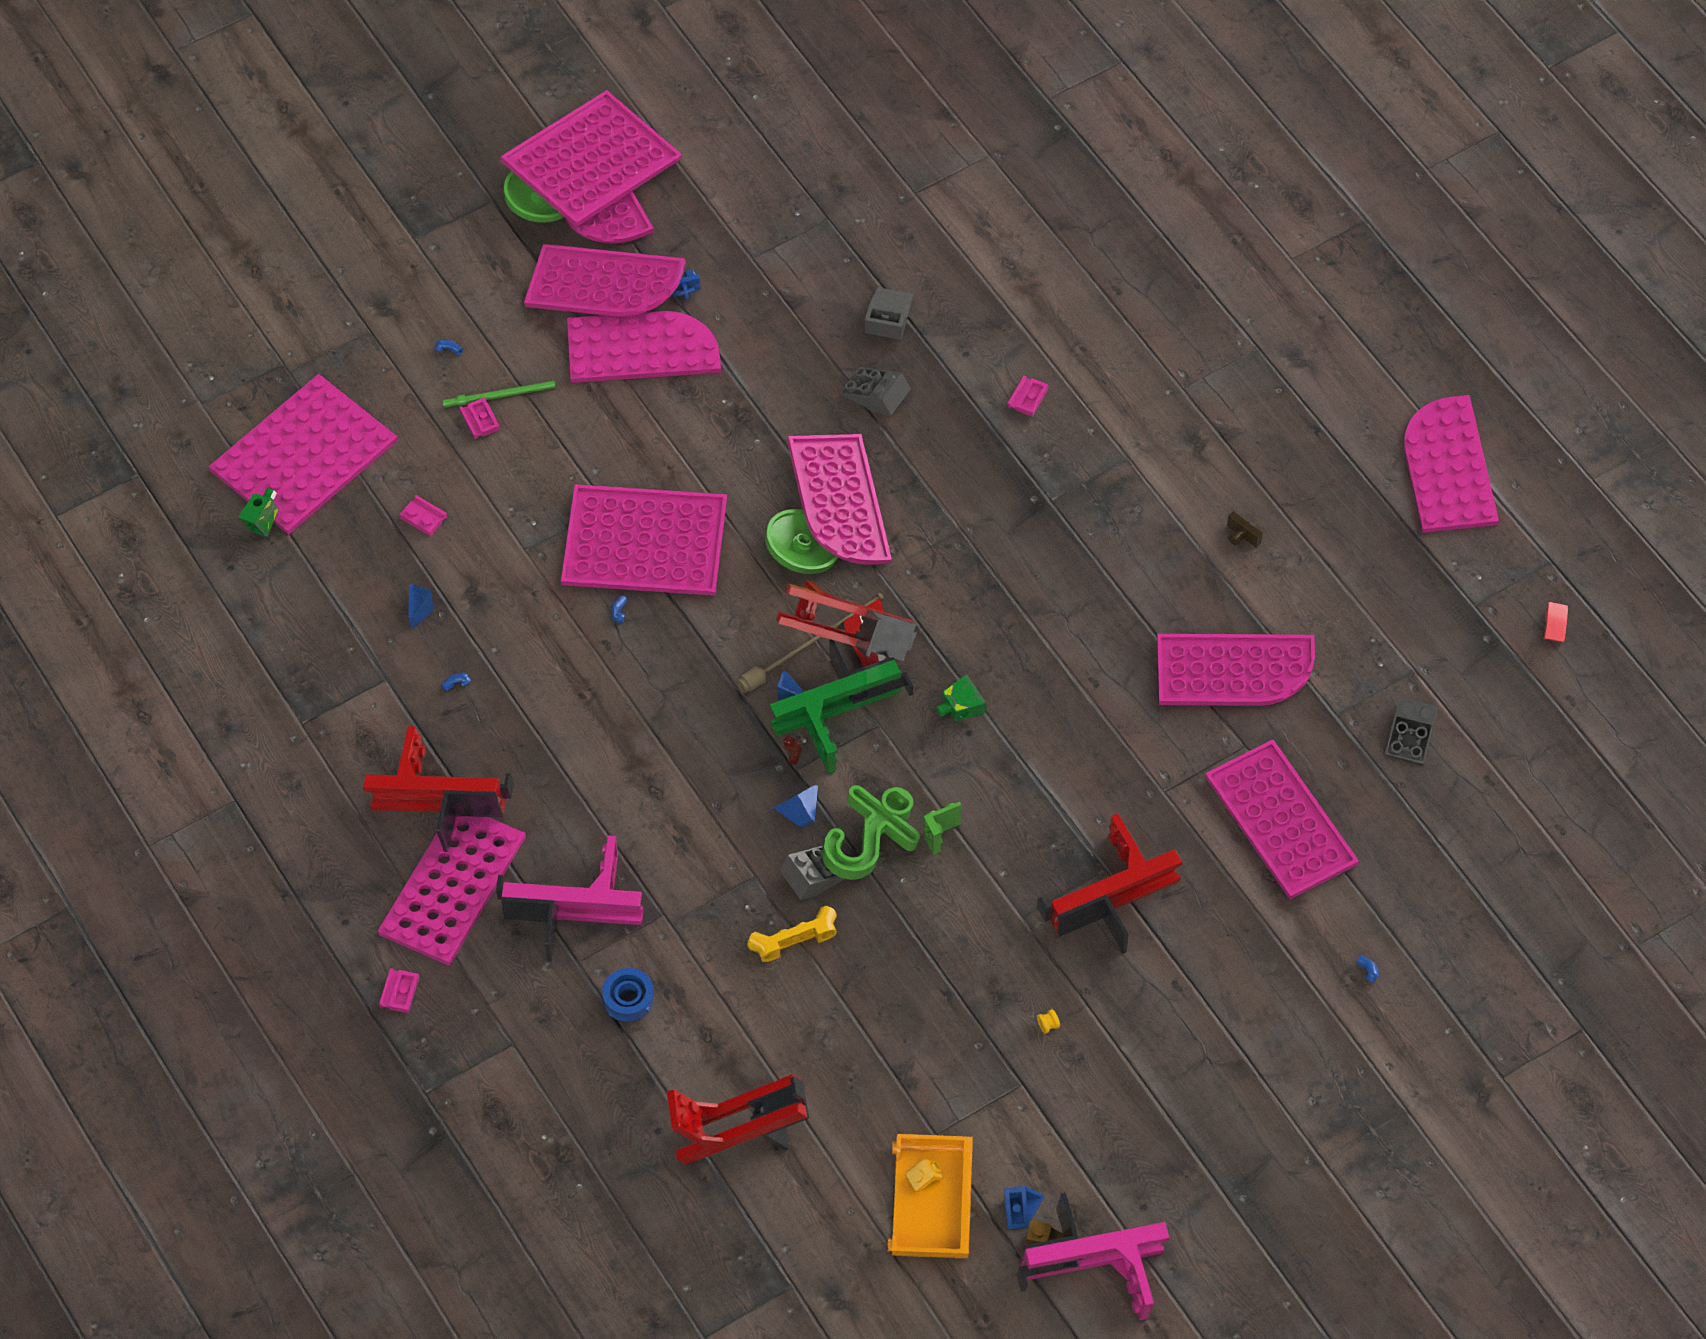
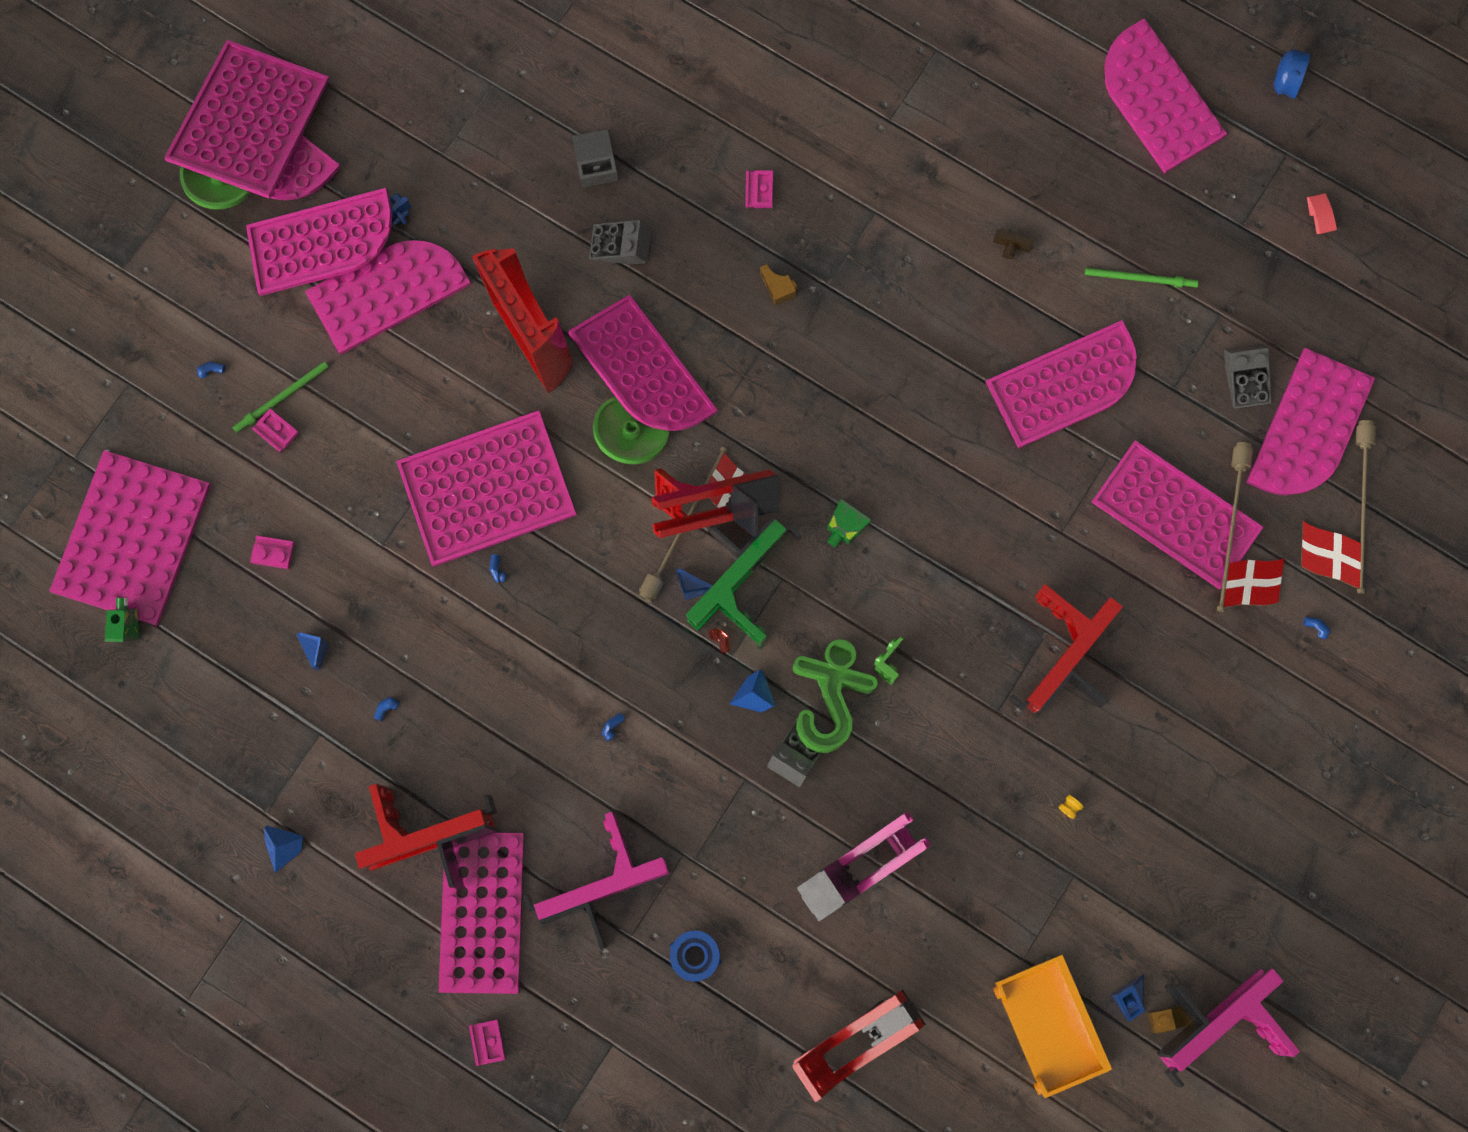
camera: 20 degrees left, 20 degrees up
(302, 754) = (282, 846): none -> blue slope
(652, 778) = (610, 725): none -> blue arm
(753, 398) = (513, 299): none -> red panel
(770, 946) = (831, 806): yellow plate -> none
(786, 980) = (835, 886): none -> piece
(924, 1174) = (1036, 1007): yellow bracket -> none
(1004, 481) = (779, 287): none -> pearl gold arch
(1320, 900) = (1248, 580): none -> flag
(1385, 625) = (1177, 281): none -> bright green bar
(1421, 916) = (1333, 553): none -> flag
(1451, 797) = (1310, 426): none -> dark pink plate
(1584, 490) = (1291, 72): none -> blue piece

